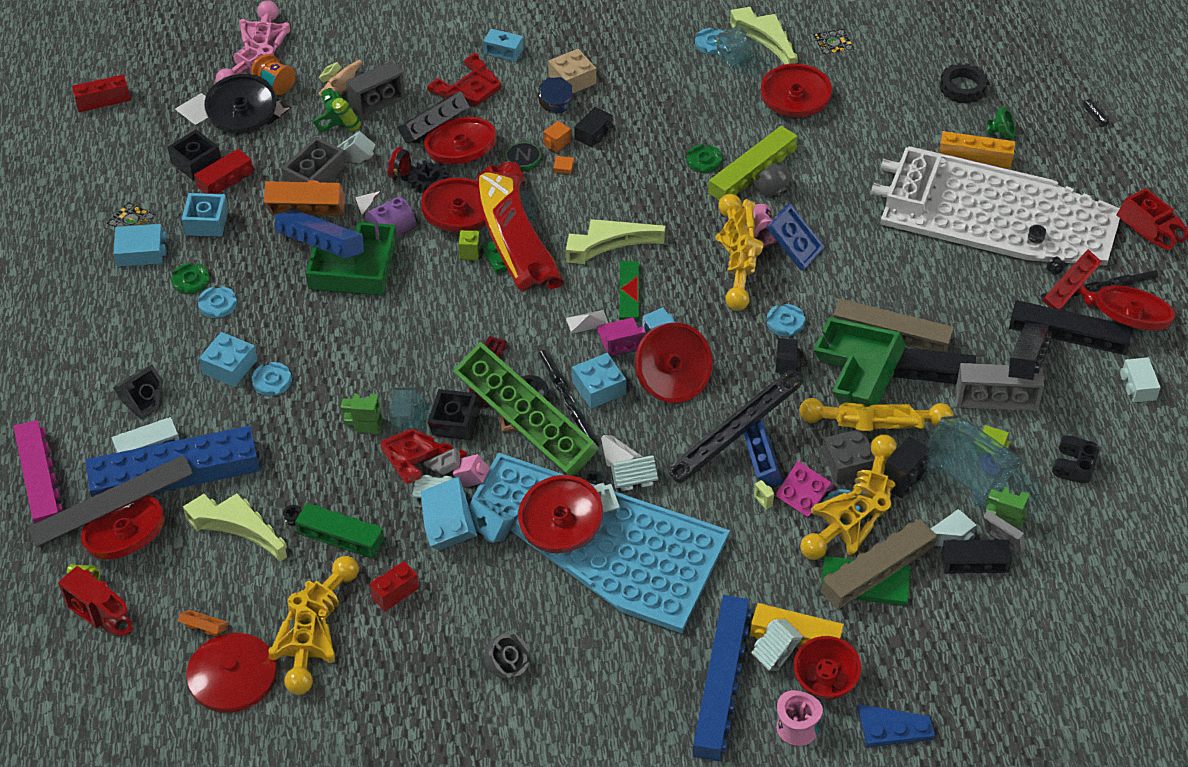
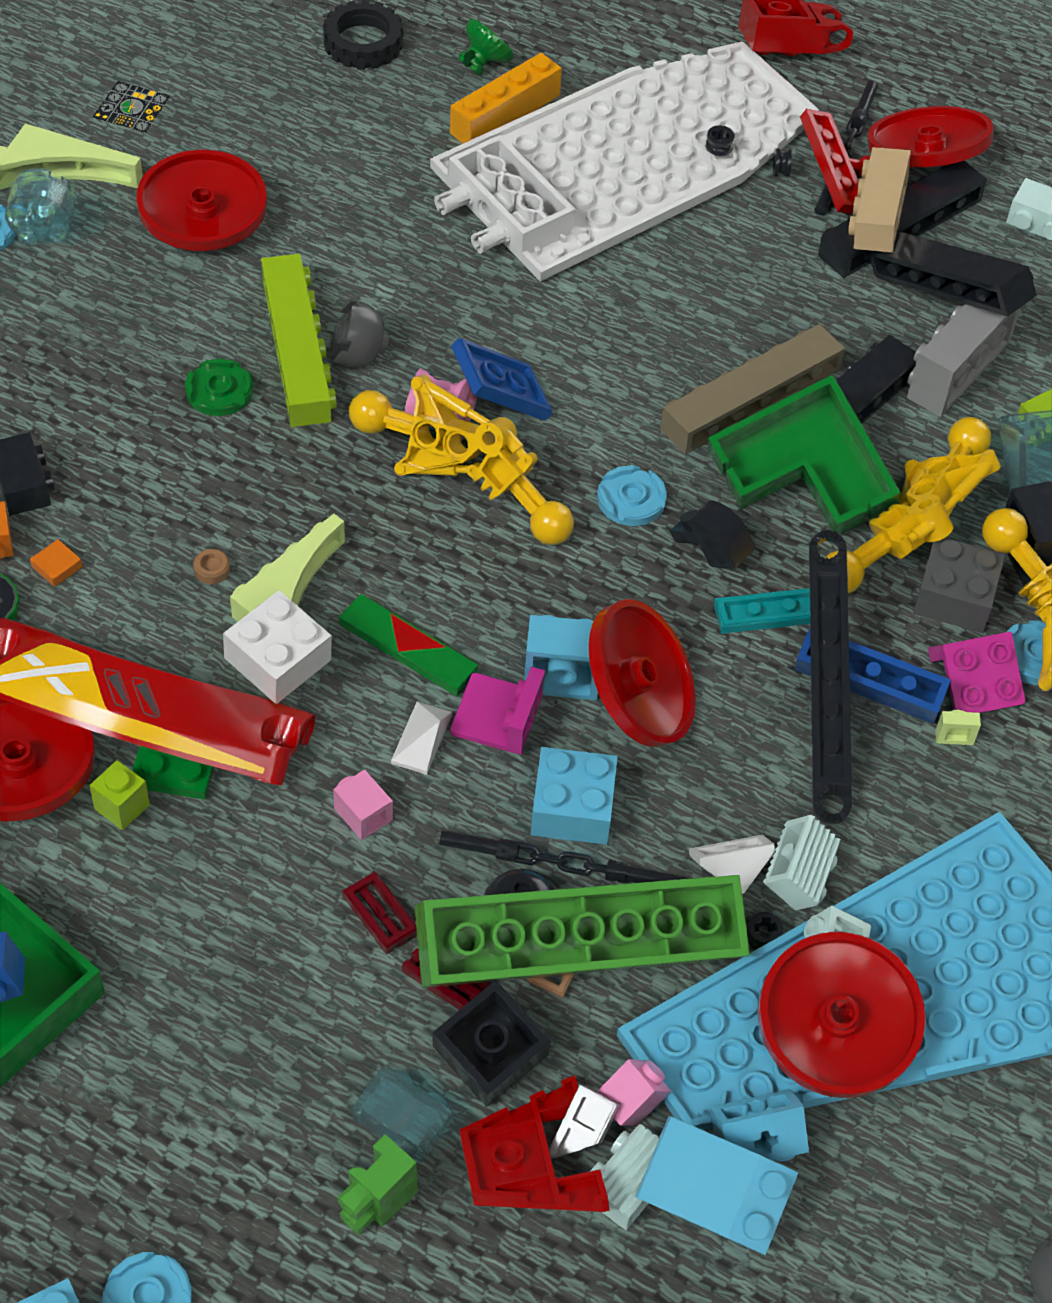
camera: 60 degrees left, 5 degrees up
(533, 318) = (362, 804): none -> bright pink brick
(573, 243) = (277, 646): none -> white brick
(608, 210) = (211, 566): none -> medium nougat tile
(783, 412) = (763, 610): none -> teal tile
(1057, 305) = (880, 199): none -> tan brick

